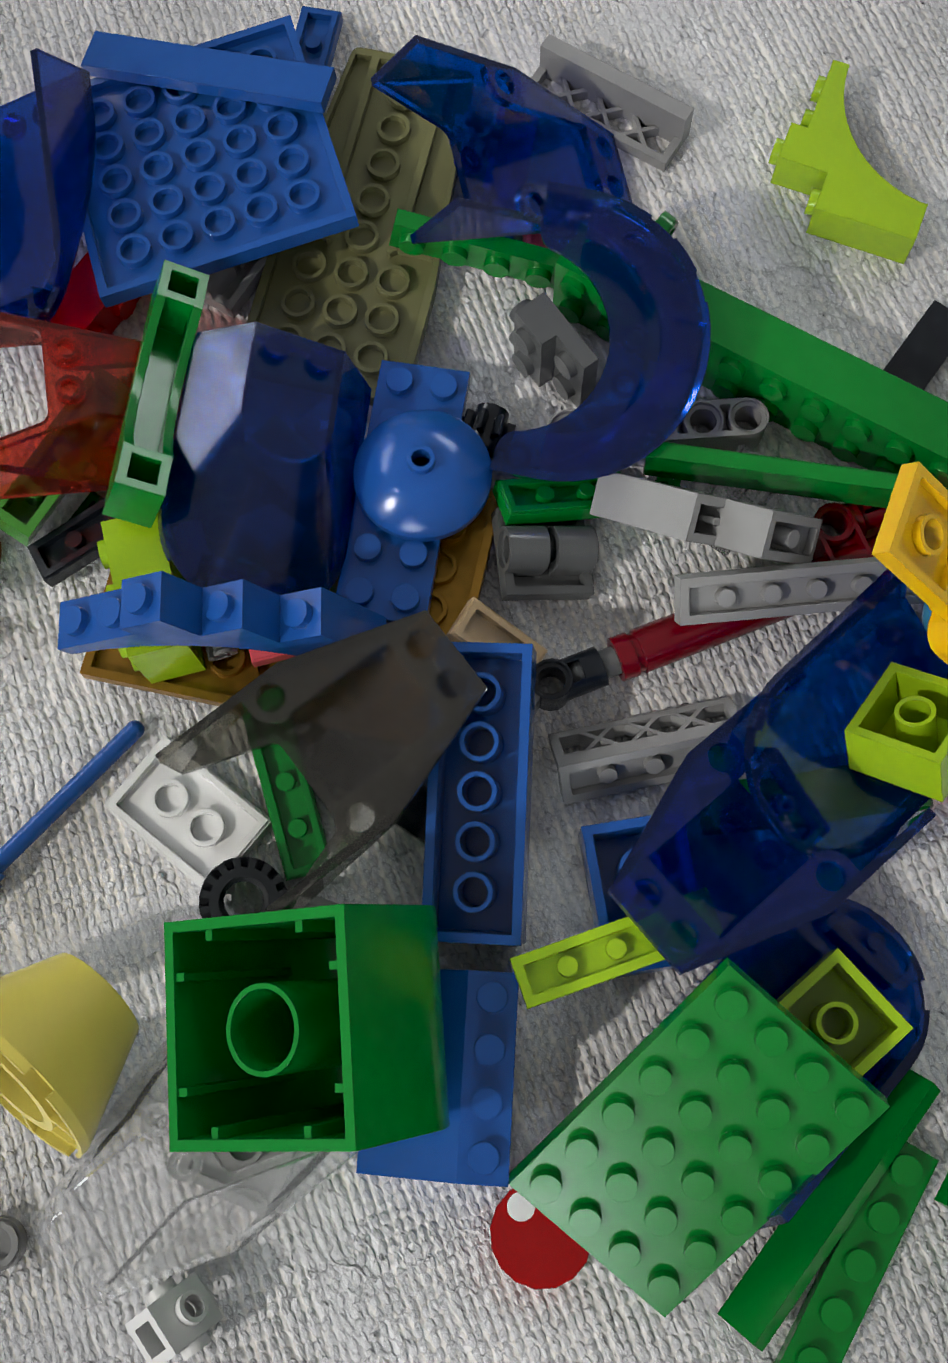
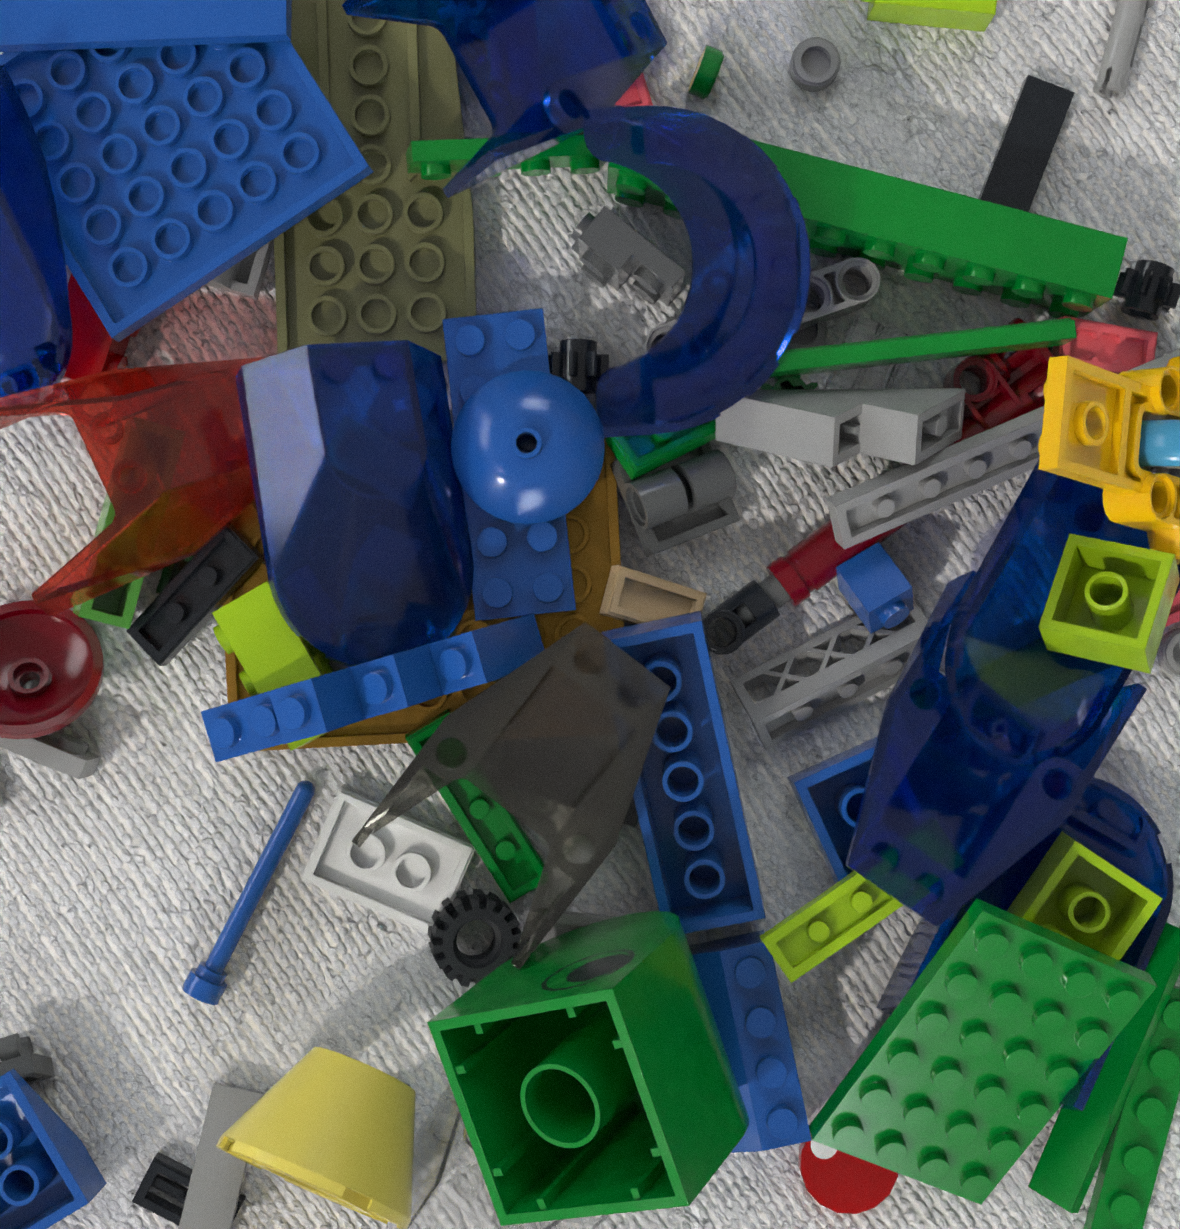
camera: 20 degrees left, 15 degrees up
(148, 426) = (233, 523): green arch -> none
(701, 680) = (875, 588): none -> blue brick
(753, 253) = (814, 64): none -> light grey tile

